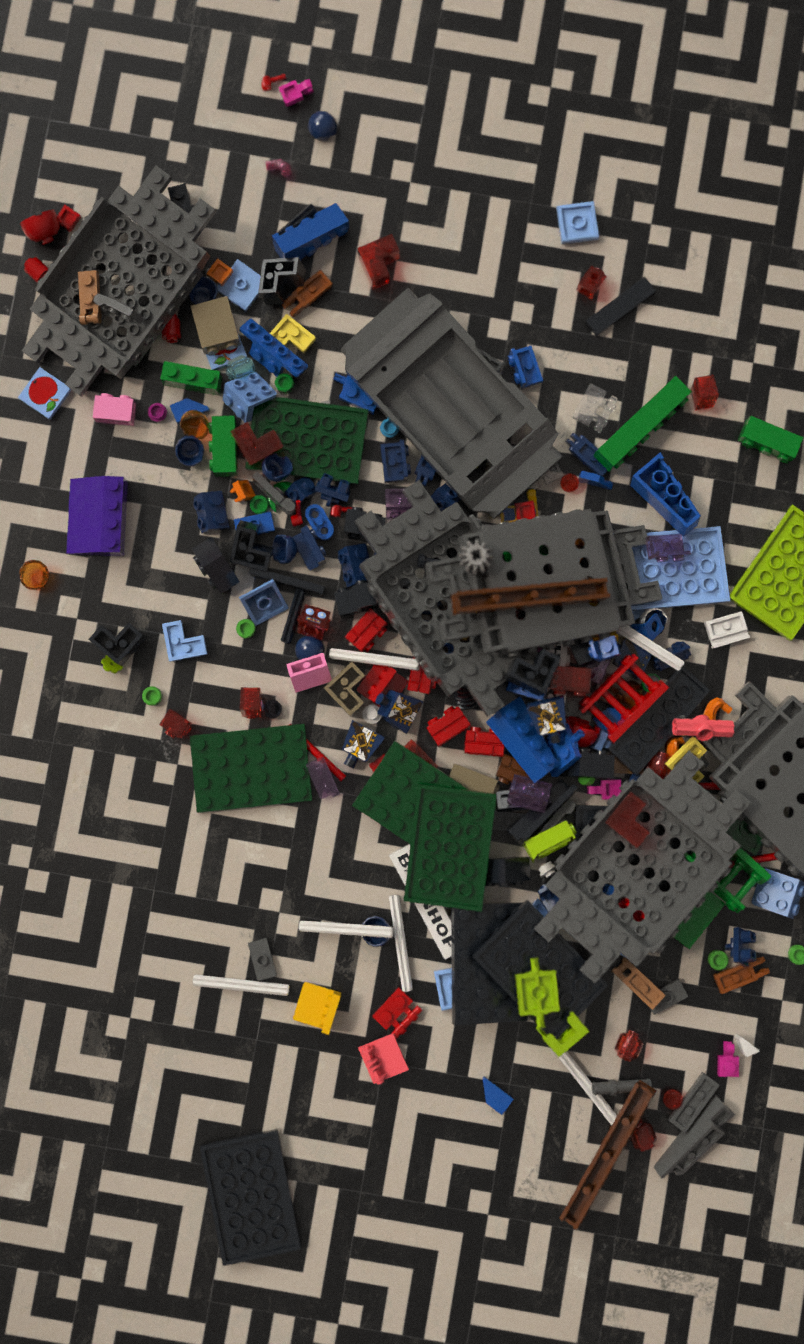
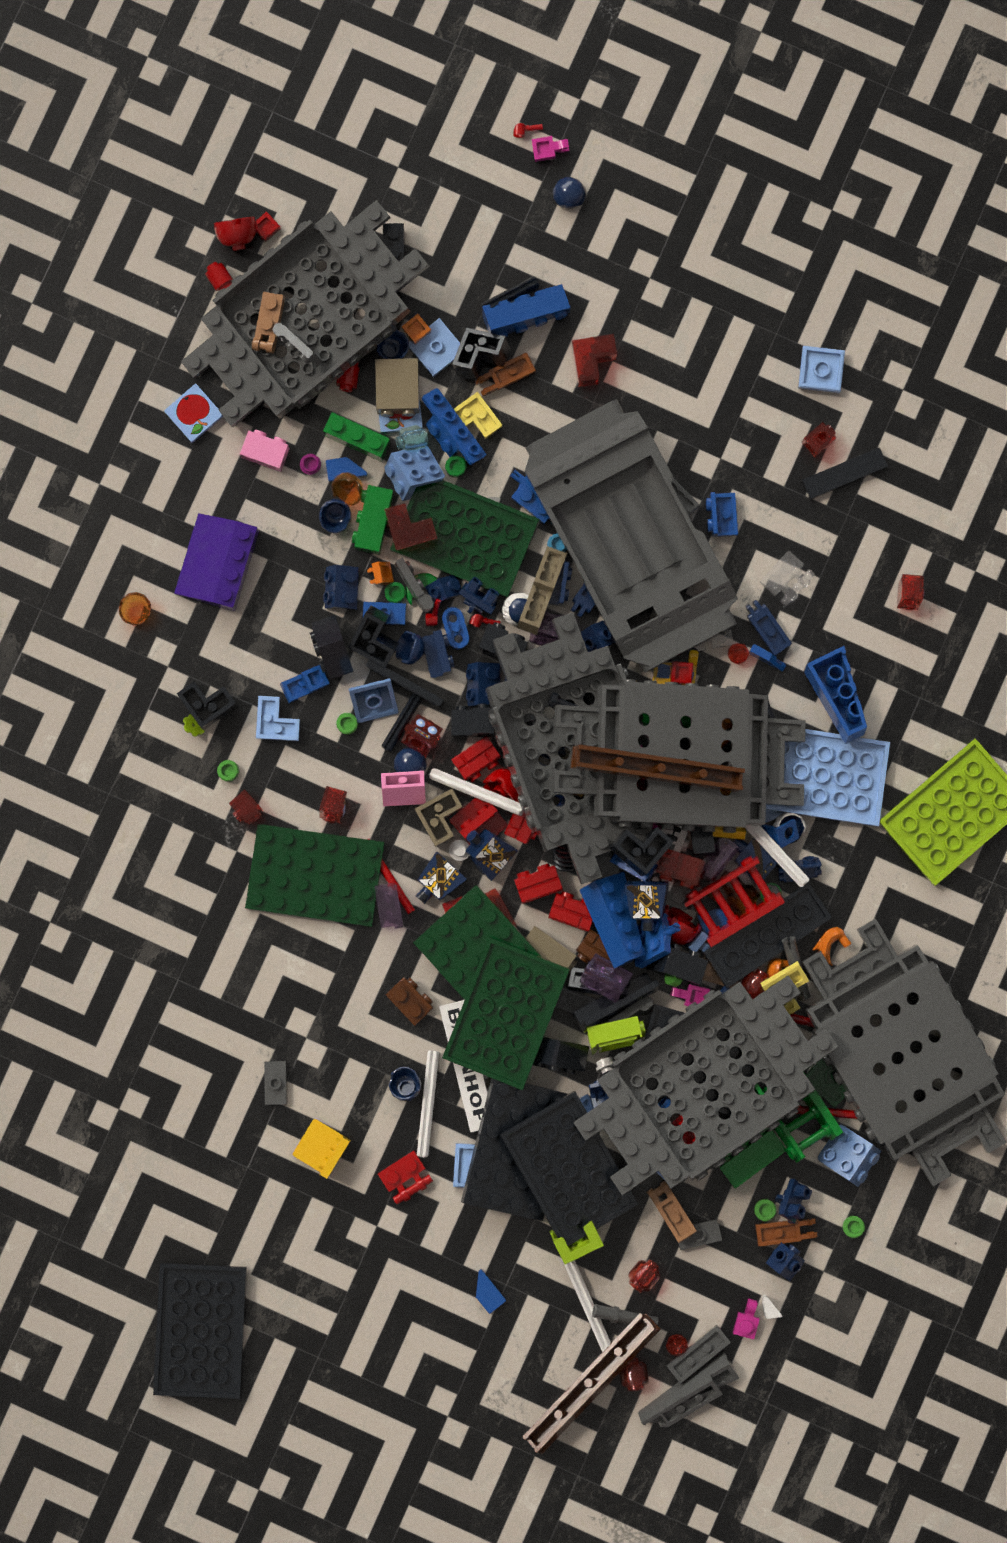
camera: 20 degrees right, 0 degrees up
(200, 603) = (304, 684): none -> blue slope
(241, 985) = (246, 1104): white axle -> none
(272, 708) = (353, 817): black plate -> none
(276, 467) = (424, 558): dark blue hair -> none
(279, 164) = (512, 224): clear pink arm -> none
(347, 929) = (373, 1073): white axle -> none
(361, 856) = (409, 1000): none -> reddish brown bracket
(369, 492) = (513, 607): none -> hair
(383, 1058) = (378, 1221): coral hinge -> none
(386, 470) = (541, 590): none -> dark tan slope
(394, 646) = (500, 783): none -> red cylinder
(475, 549) = (601, 711): light grey gear -> none
(537, 992) = (559, 1190): lime plate -> none
(604, 648) = (725, 843): blue bracket -> none
(623, 820) = (698, 1030): clear red brick -> none
(639, 426) = (833, 609): green brick -> none
(666, 547) = (822, 750): clear purple bracket -> none
(703, 727) = (809, 955): coral piece -> none
(726, 629) = (867, 856): white plate -> none
(749, 1001) = (786, 1260): none -> dark blue brick
(770, 439) = (969, 661): green brick -> none

